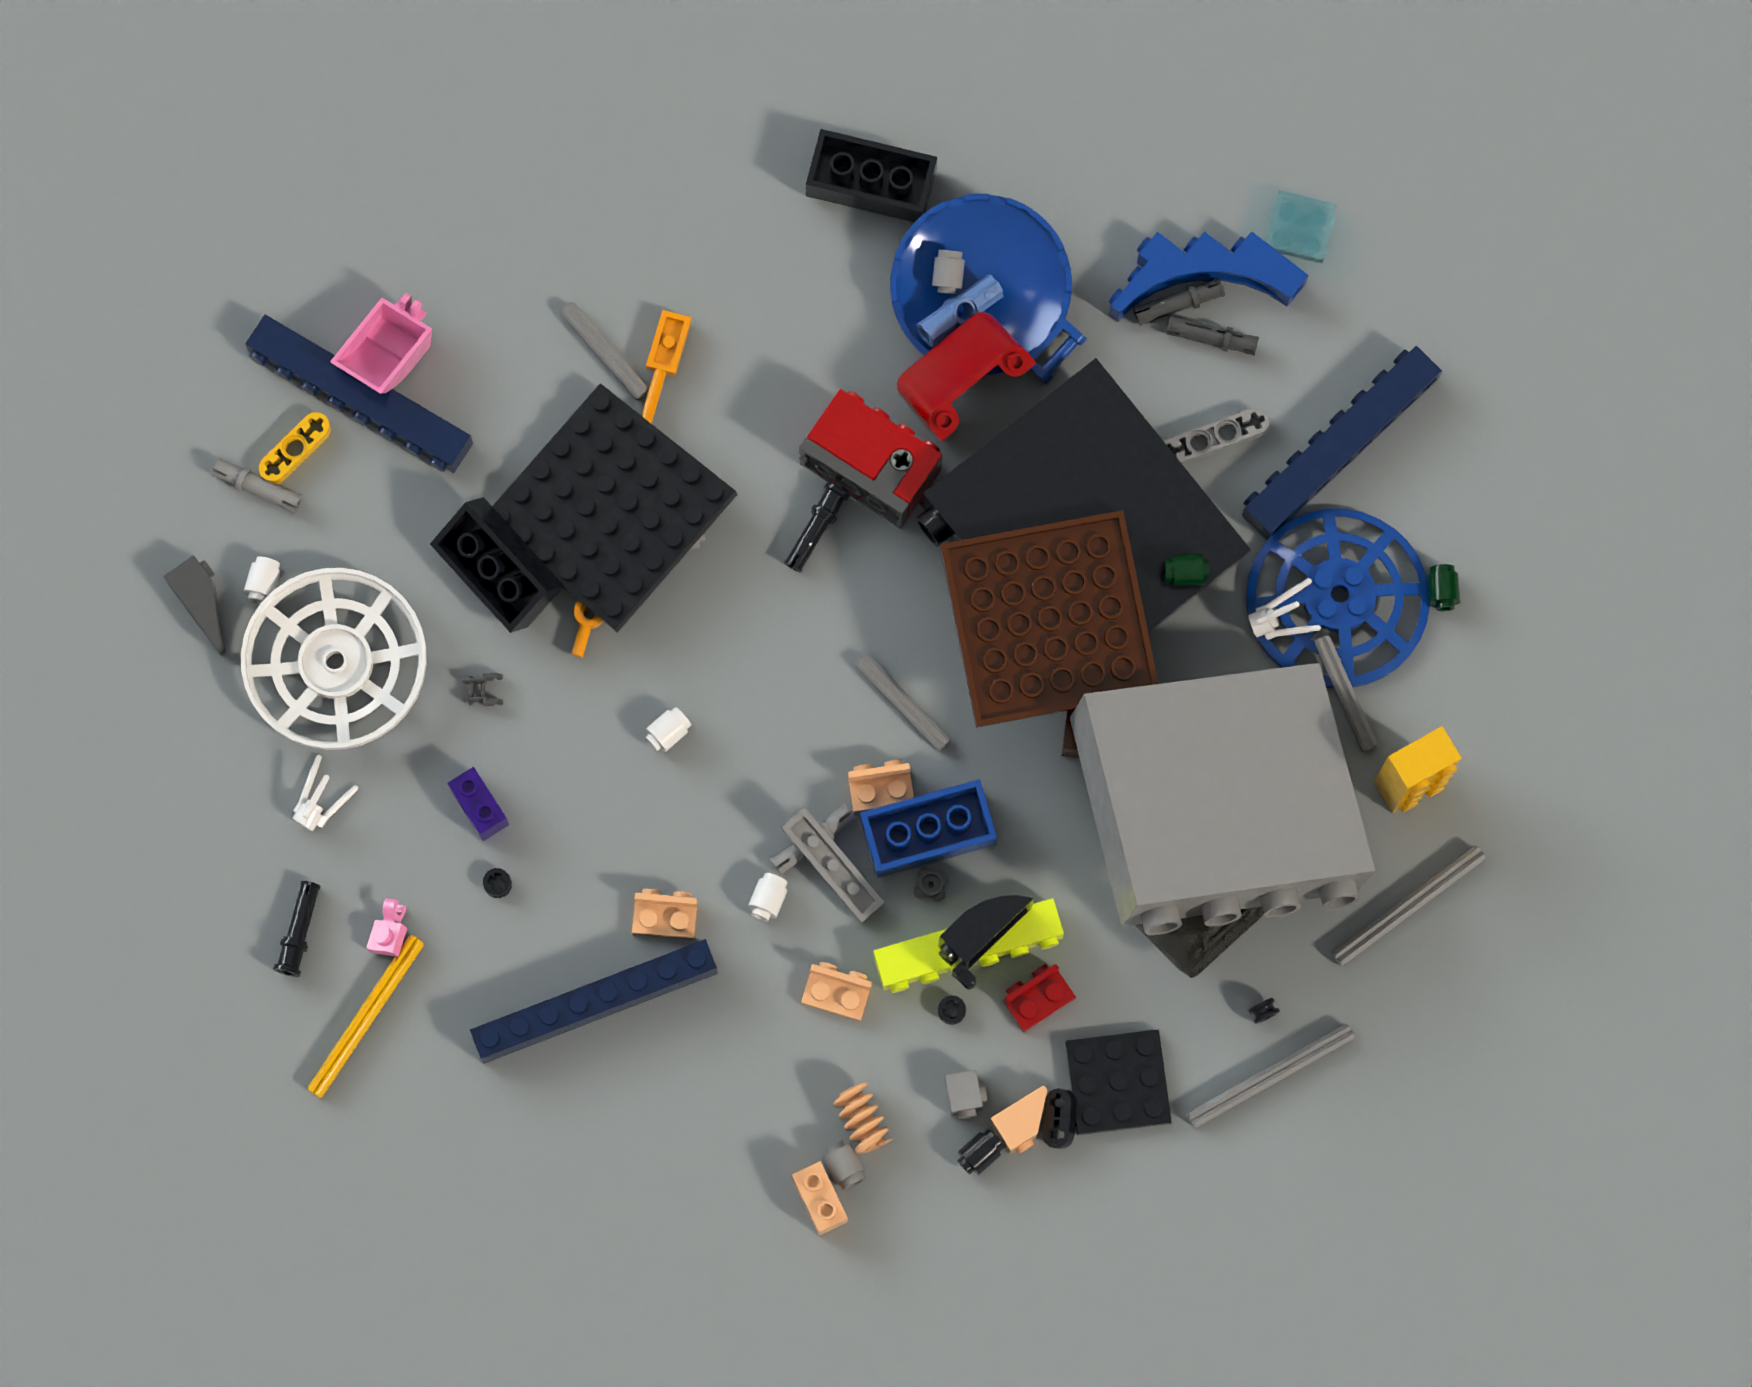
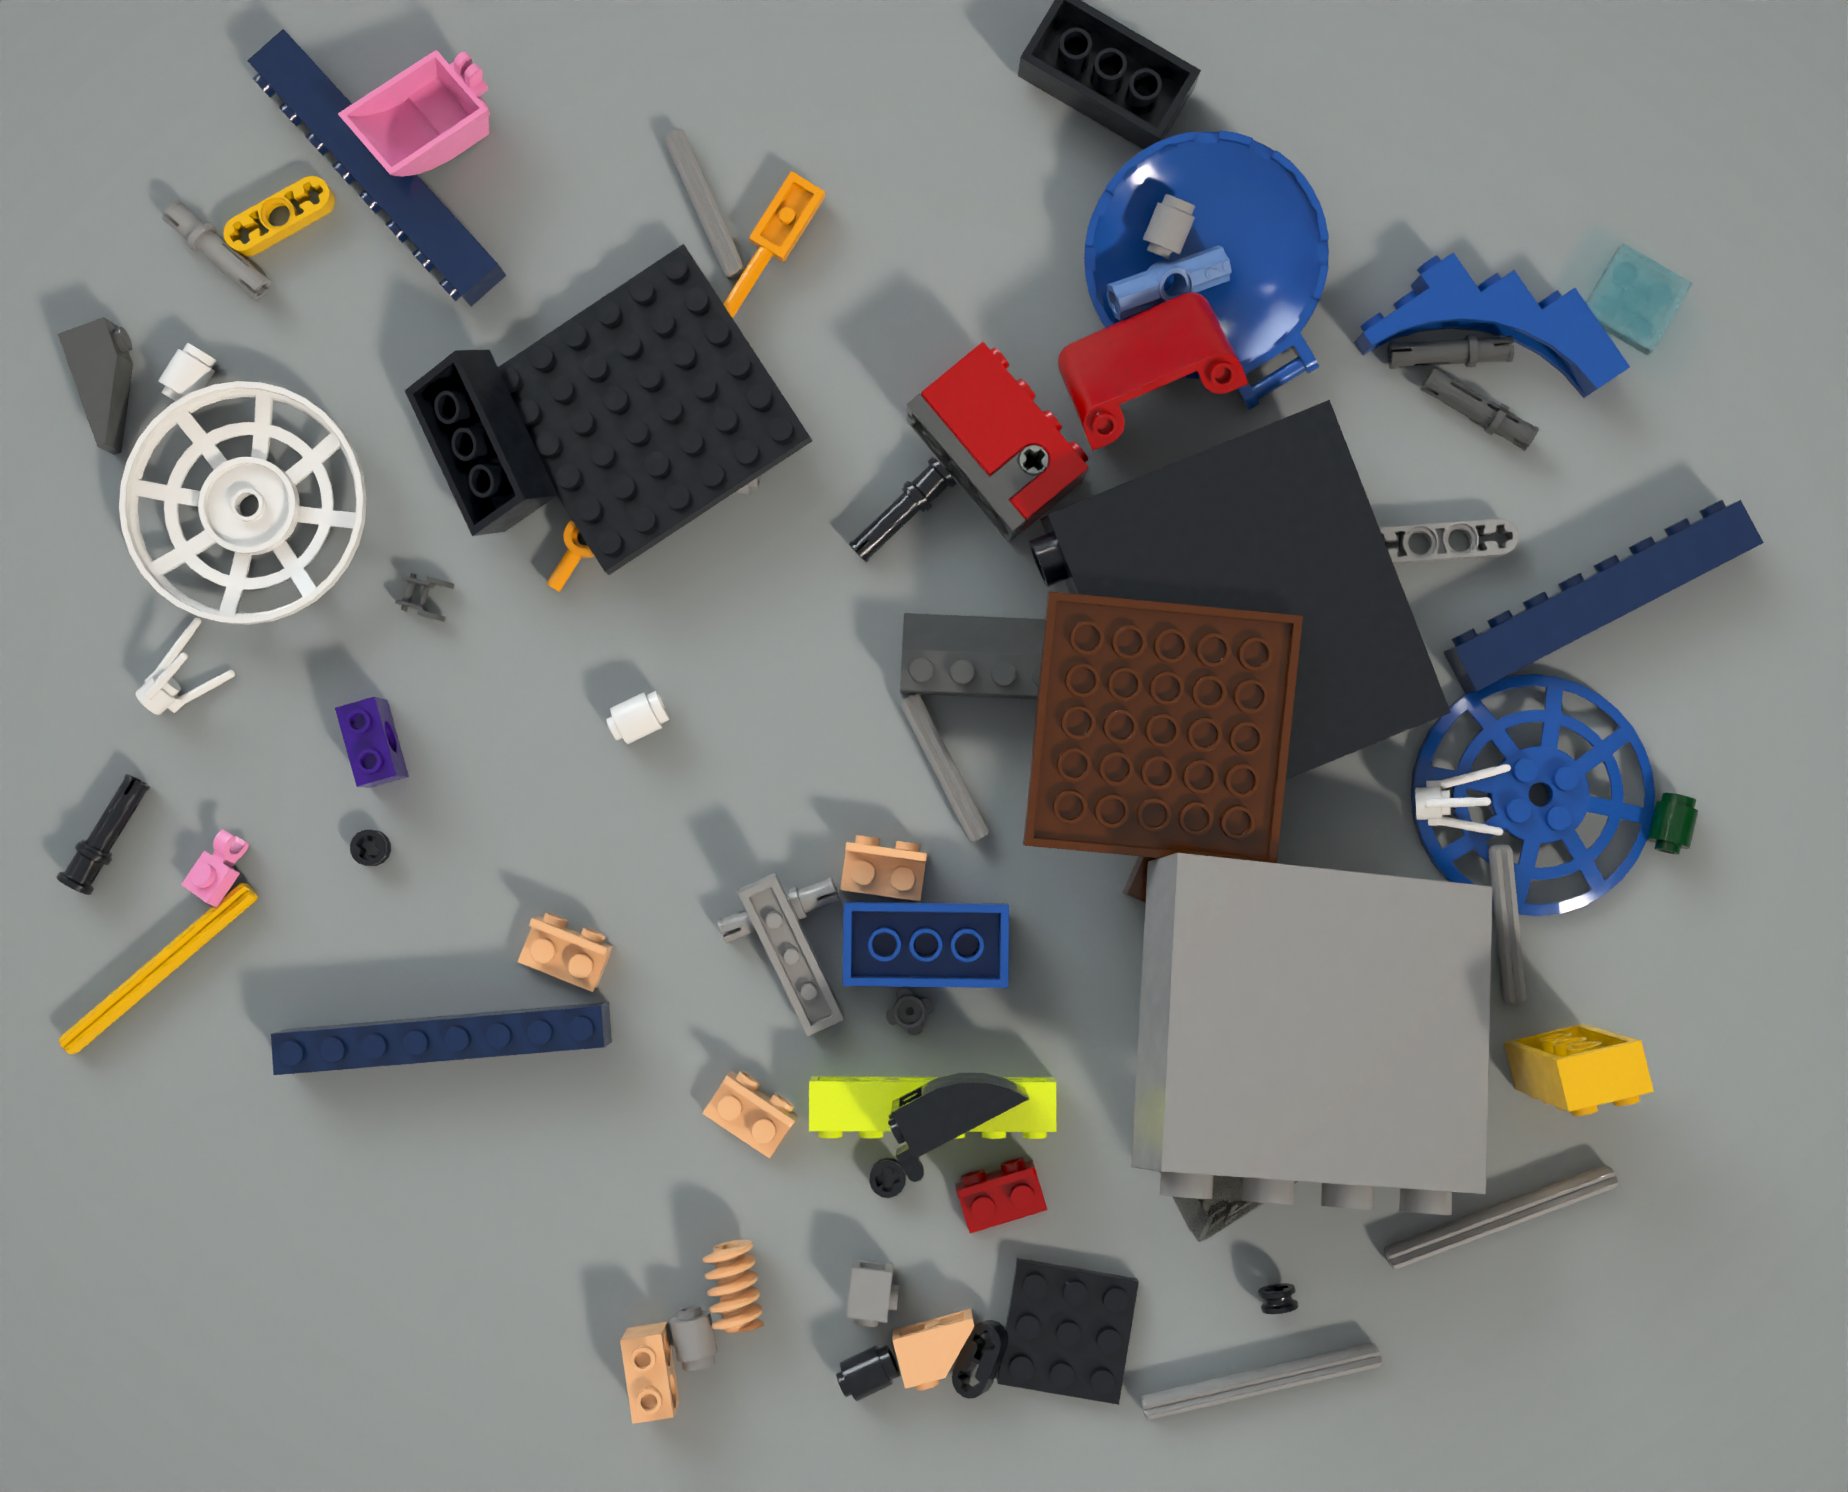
camera: 15 degrees right, 10 degrees up
(768, 897) = (700, 968): white brick -> none
(899, 617) = (971, 656): none -> dark grey slope
(1186, 569) = (1360, 717): dark green brick -> none

